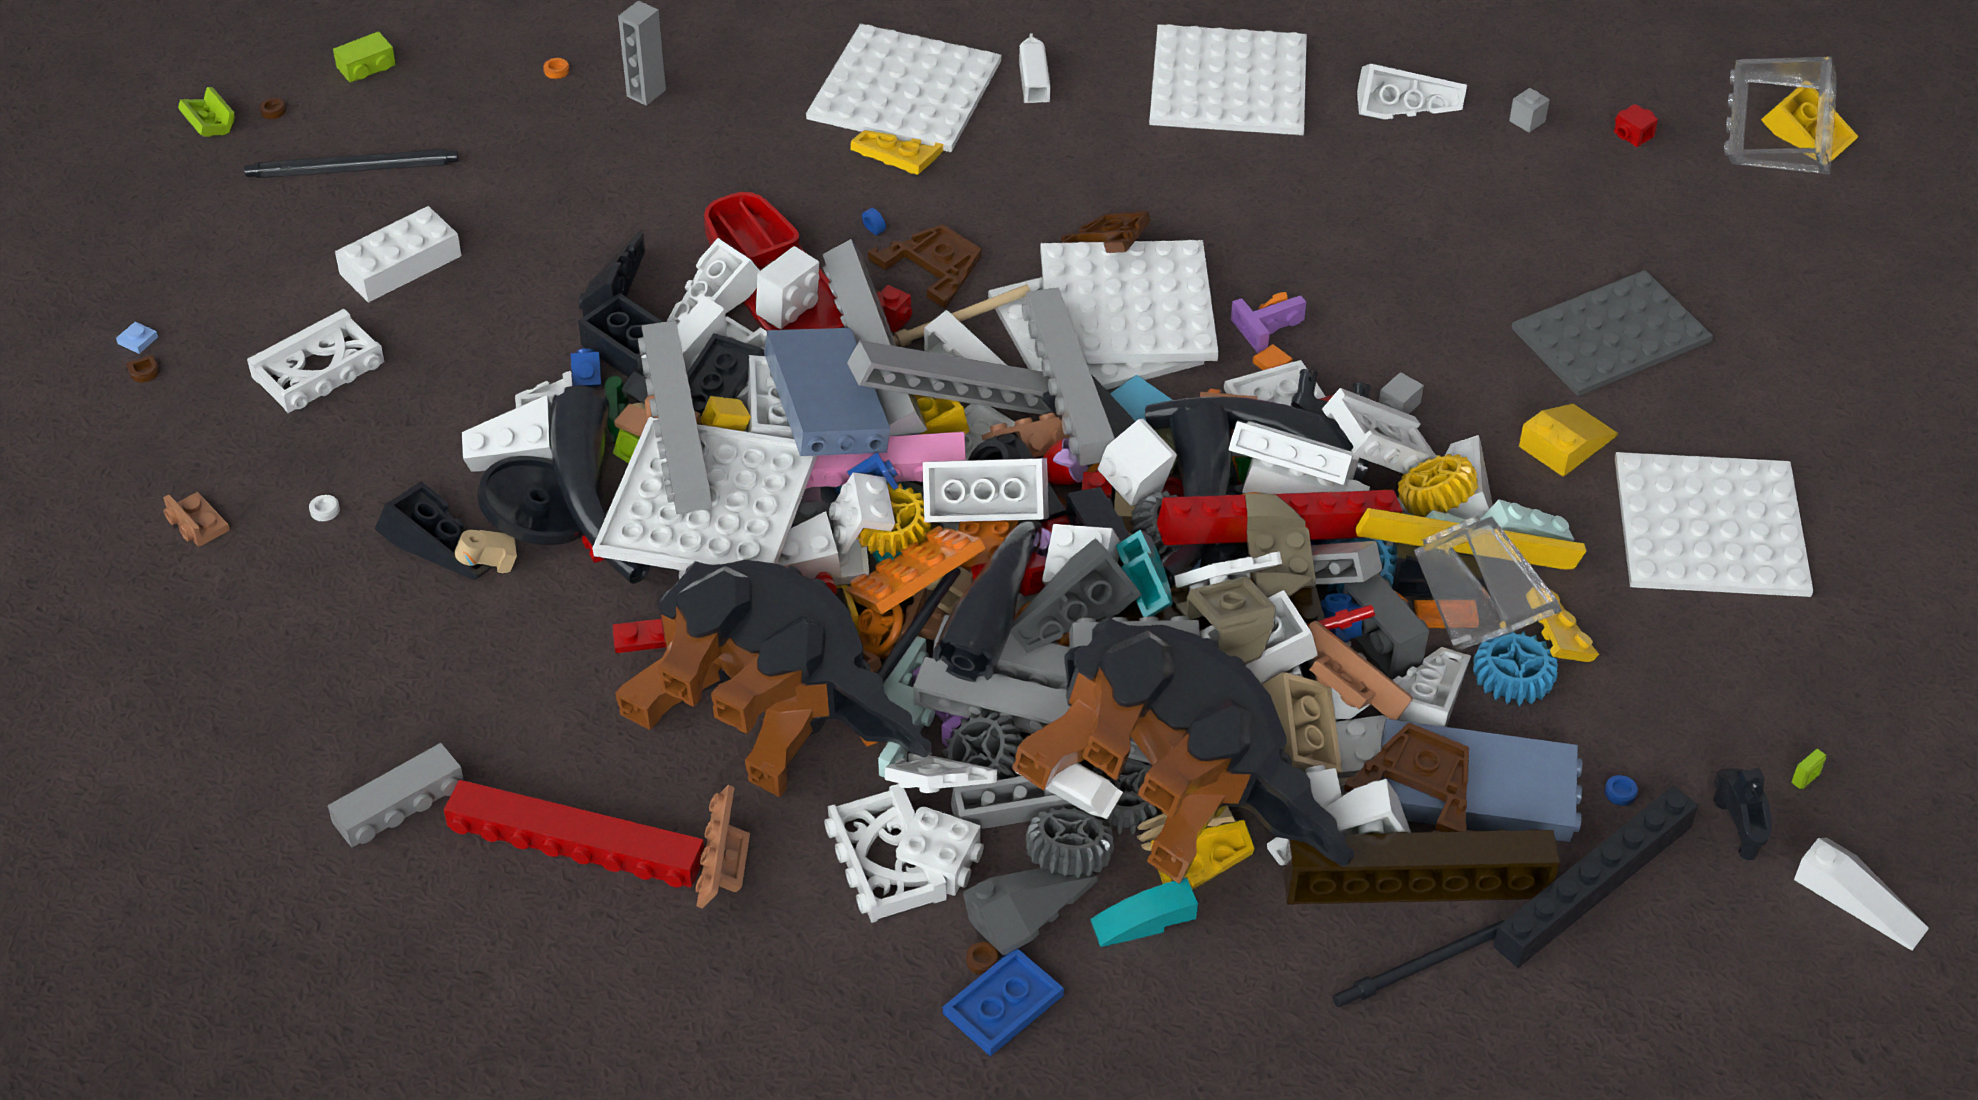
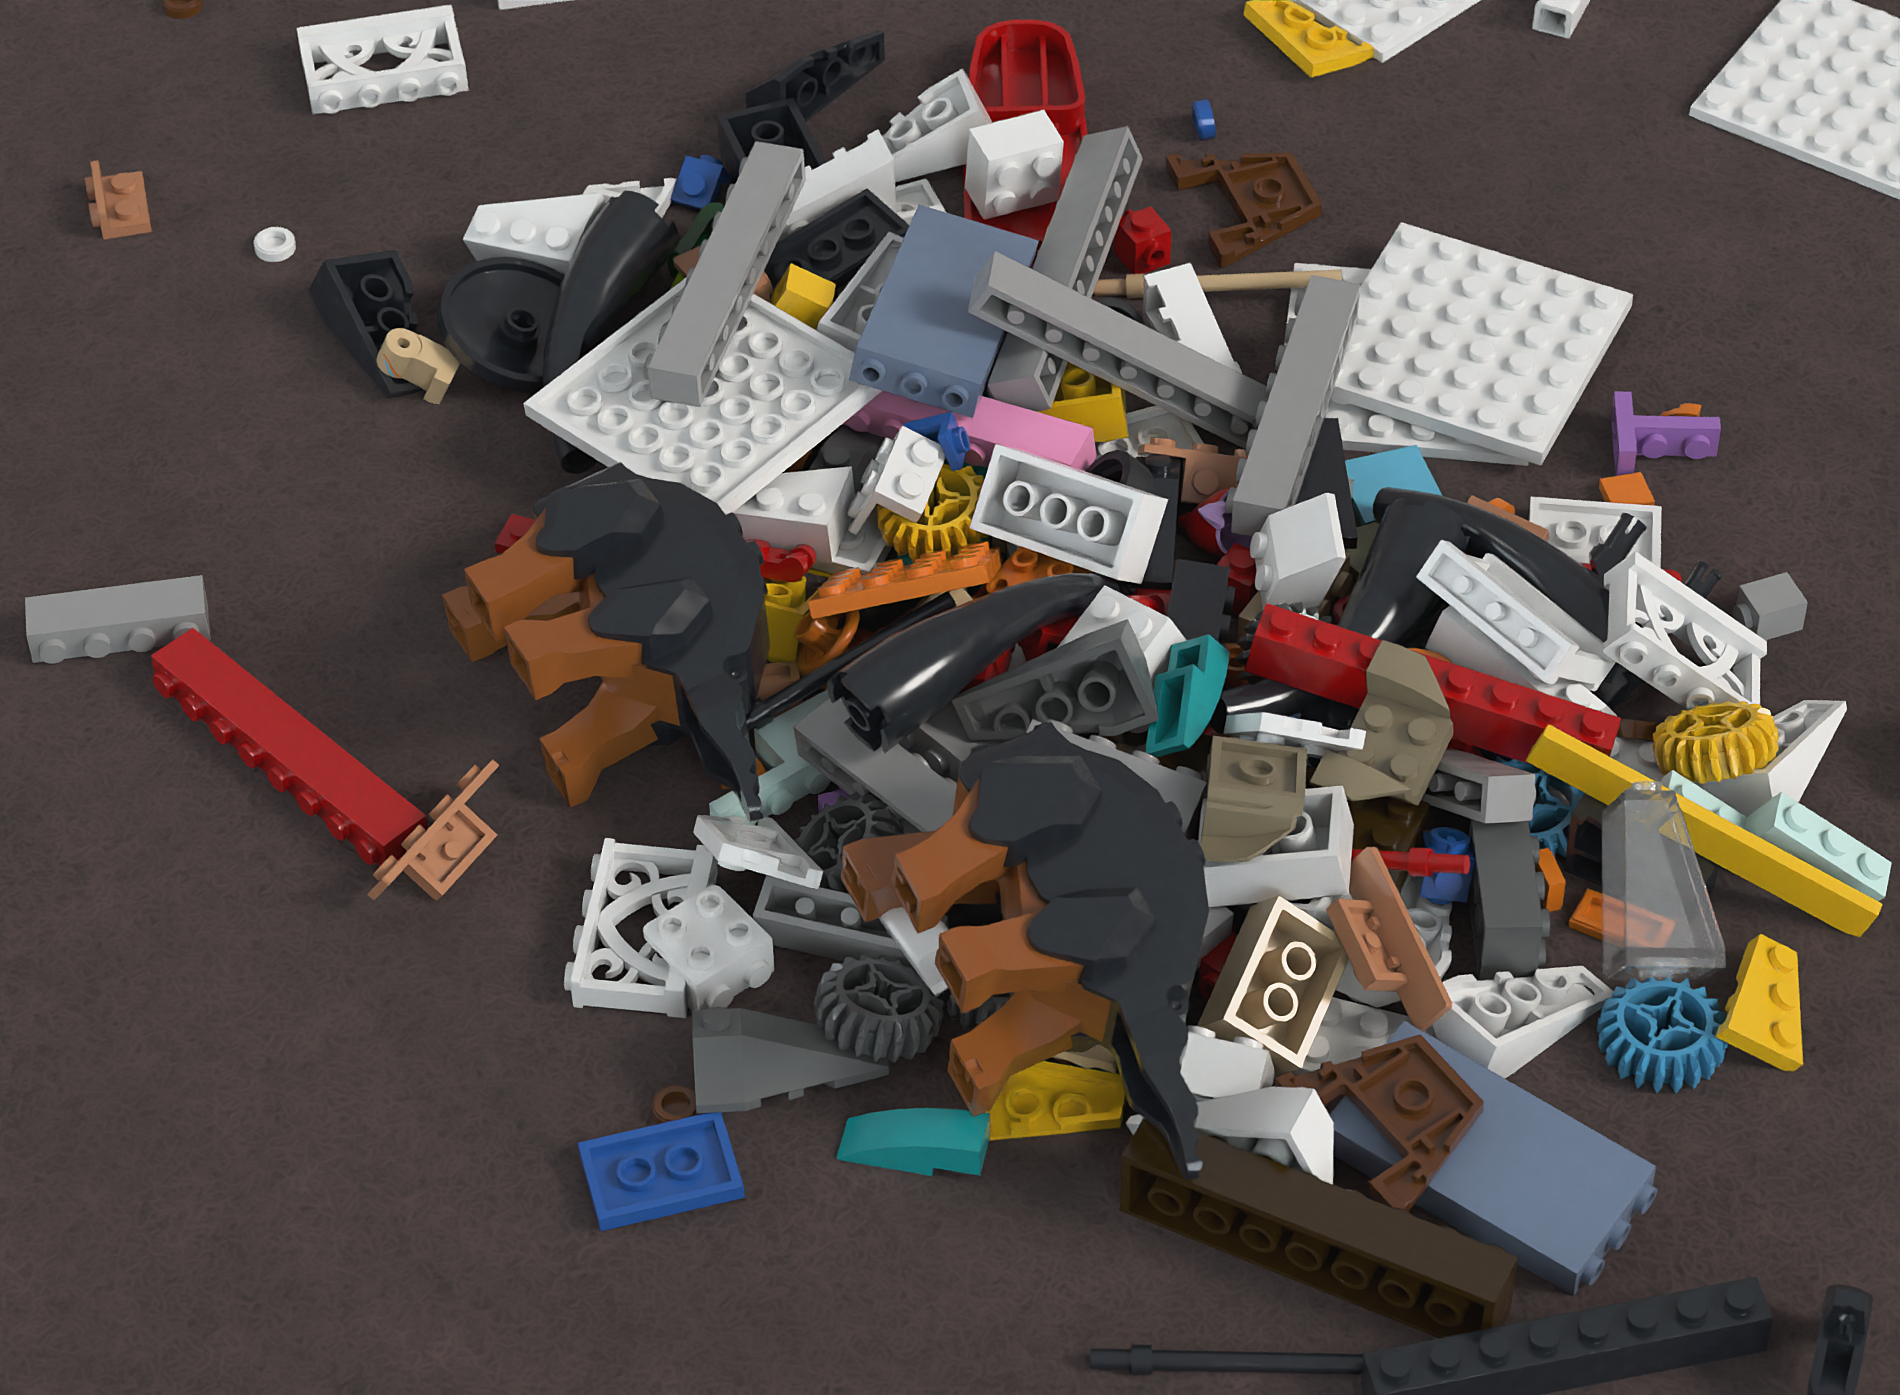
camera: 30 degrees right, 0 degrees up
(1114, 229) = (1514, 239): reddish brown wing -> none
(1621, 790) = (1697, 1258): blue tile -> none

